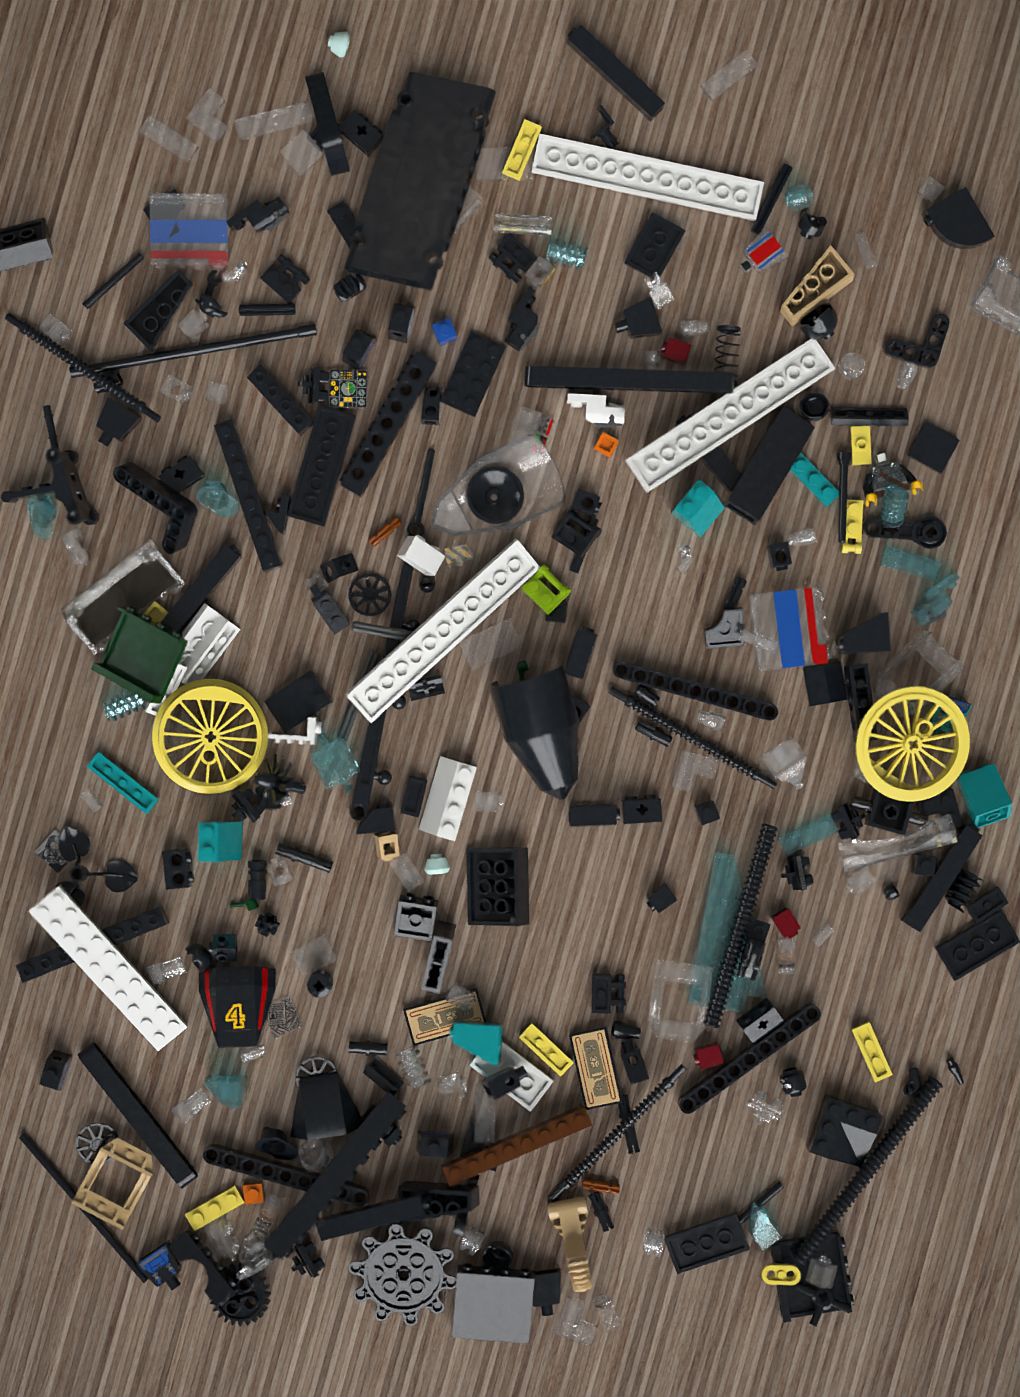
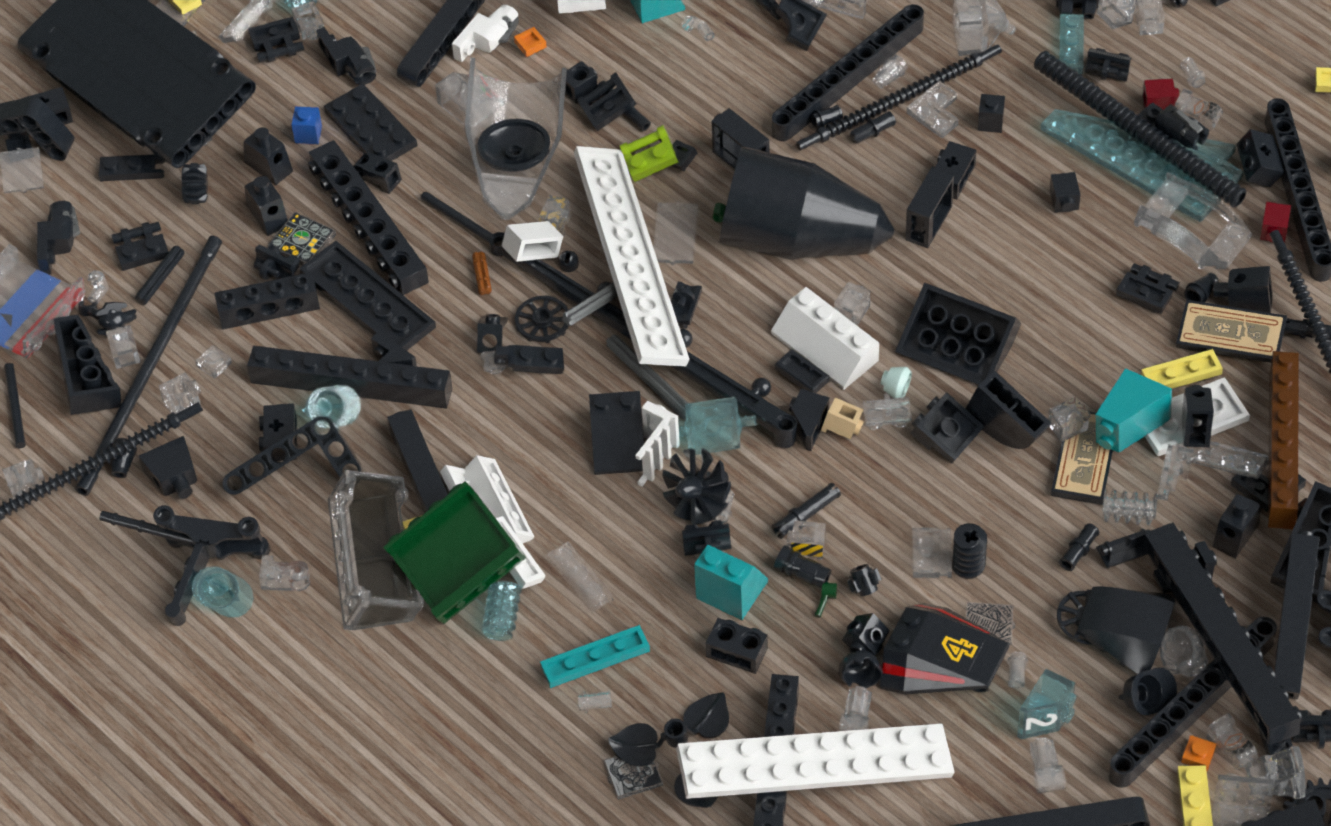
camera: 55 degrees left, 35 degrees down
(210, 690) = (600, 534): light yellow piece -> none

